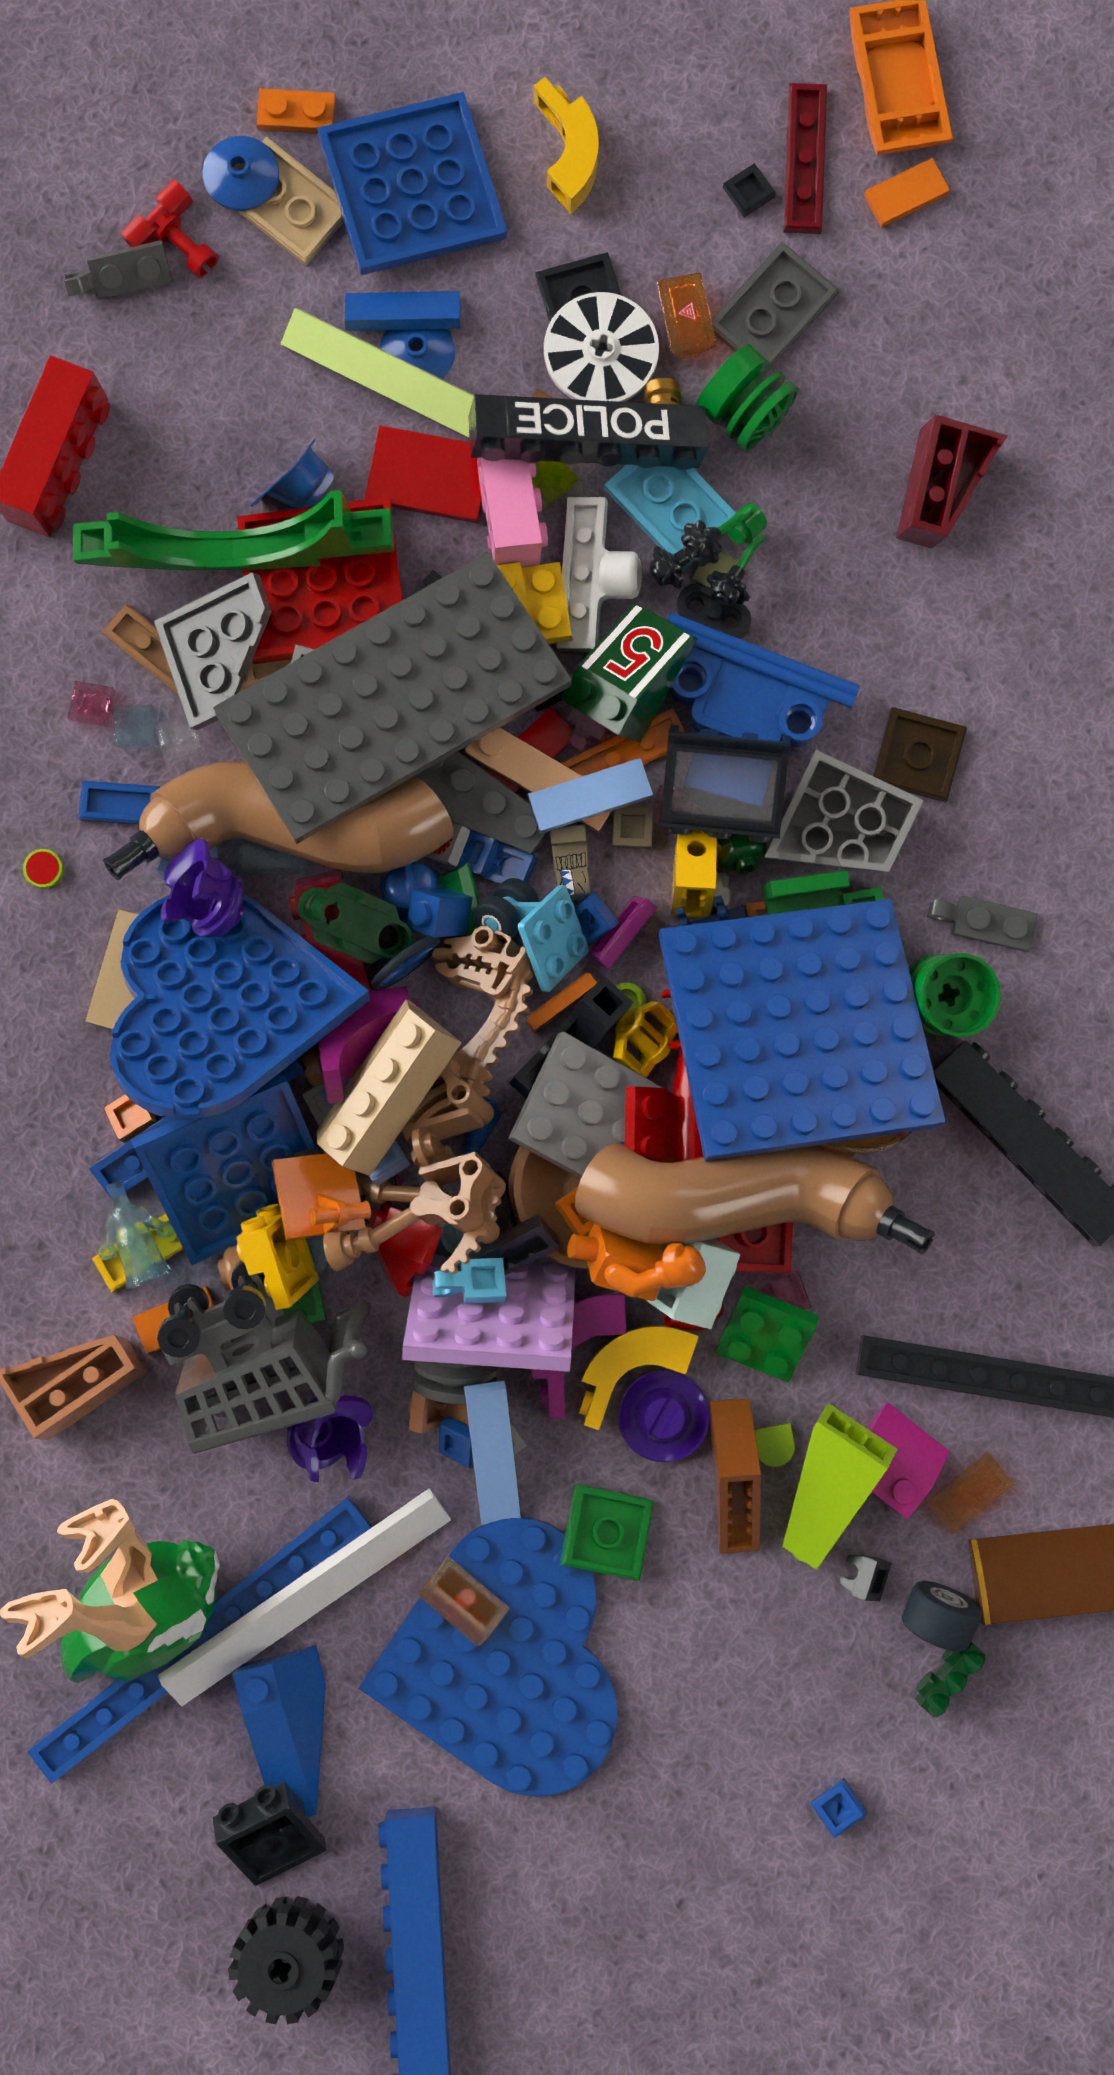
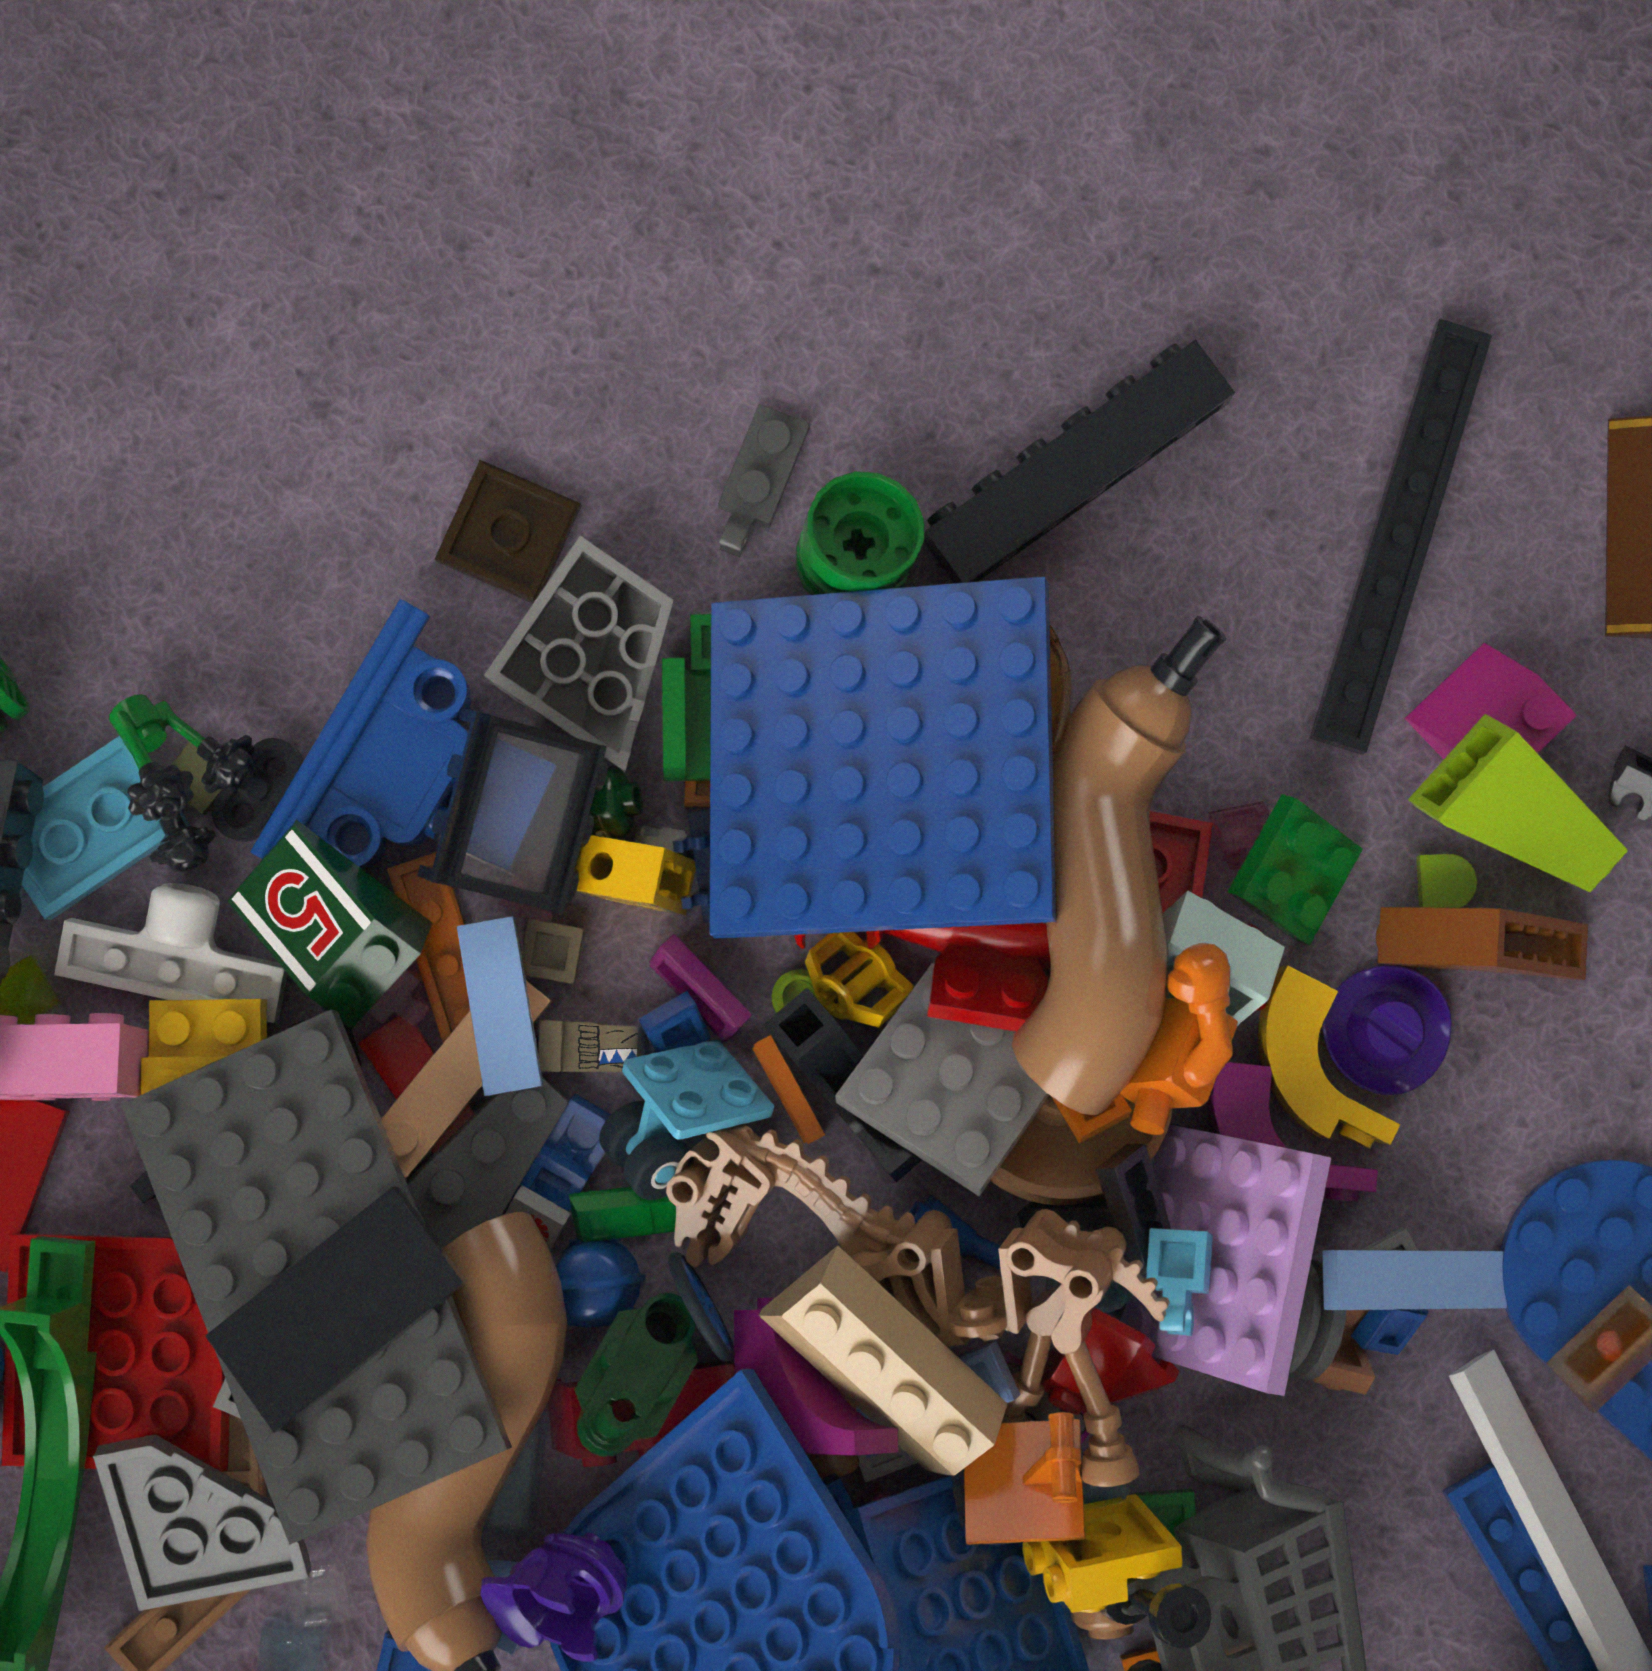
camera: 85 degrees left, 0 degrees up
(328, 1438) = (1369, 1510): dark purple helmet -> none
(372, 712) = (336, 1309): none -> black tile
(439, 911) = (634, 1247): blue brick -> none
(606, 1532) = (1540, 1133): green tile -> none
(943, 475) = (116, 435): dark red wedge -> none
(969, 1493) = (1544, 624): clear orange plate -> none

